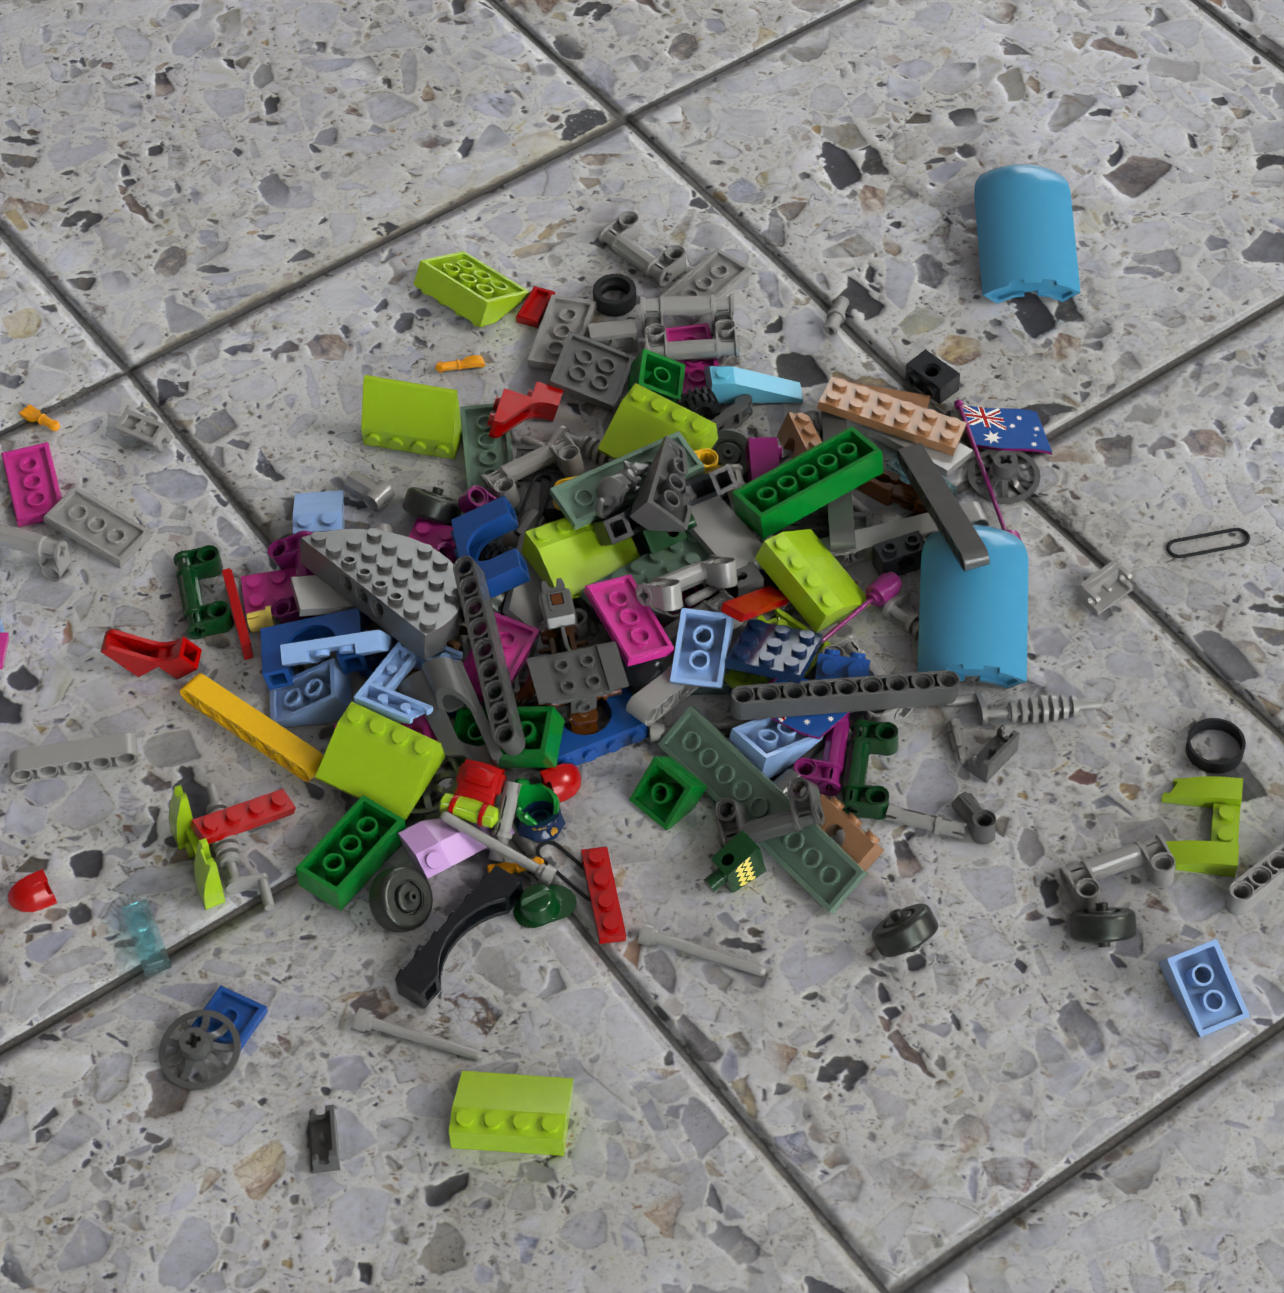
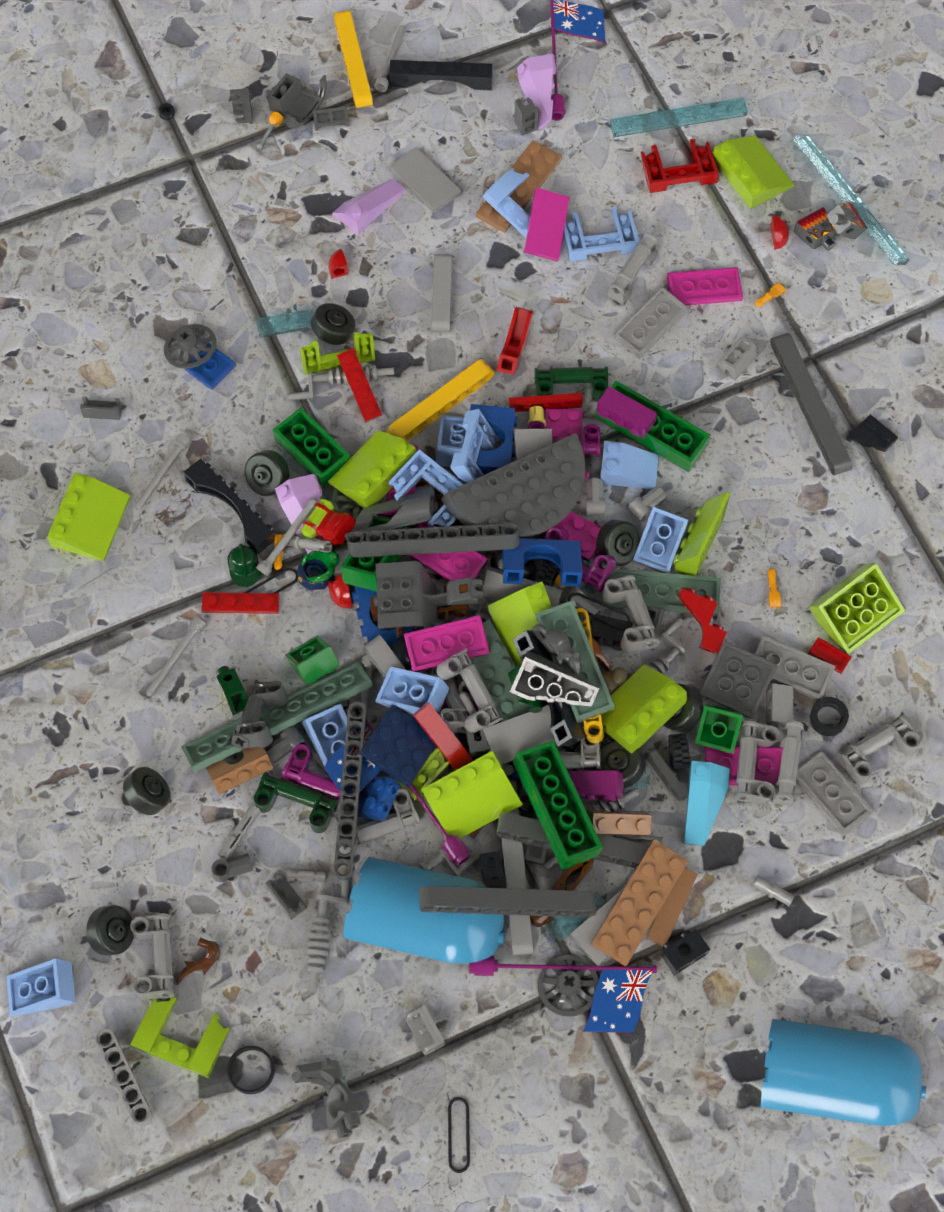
camera: 100 degrees right, 15 degrees up
(144, 869) = (333, 324): none -> pearl dark grey wheel
(198, 358) = (811, 404): none -> dark grey beam
(232, 302) = (873, 434): none -> black wing
(254, 506) = (626, 412): none -> magenta brick
(259, 496) = (669, 436): none -> green brick
(416, 464) = (661, 539): none -> light blue slope
(1096, 816) = (204, 962): none -> reddish brown piece
(1231, 635) = (340, 1103): none -> dark grey hips

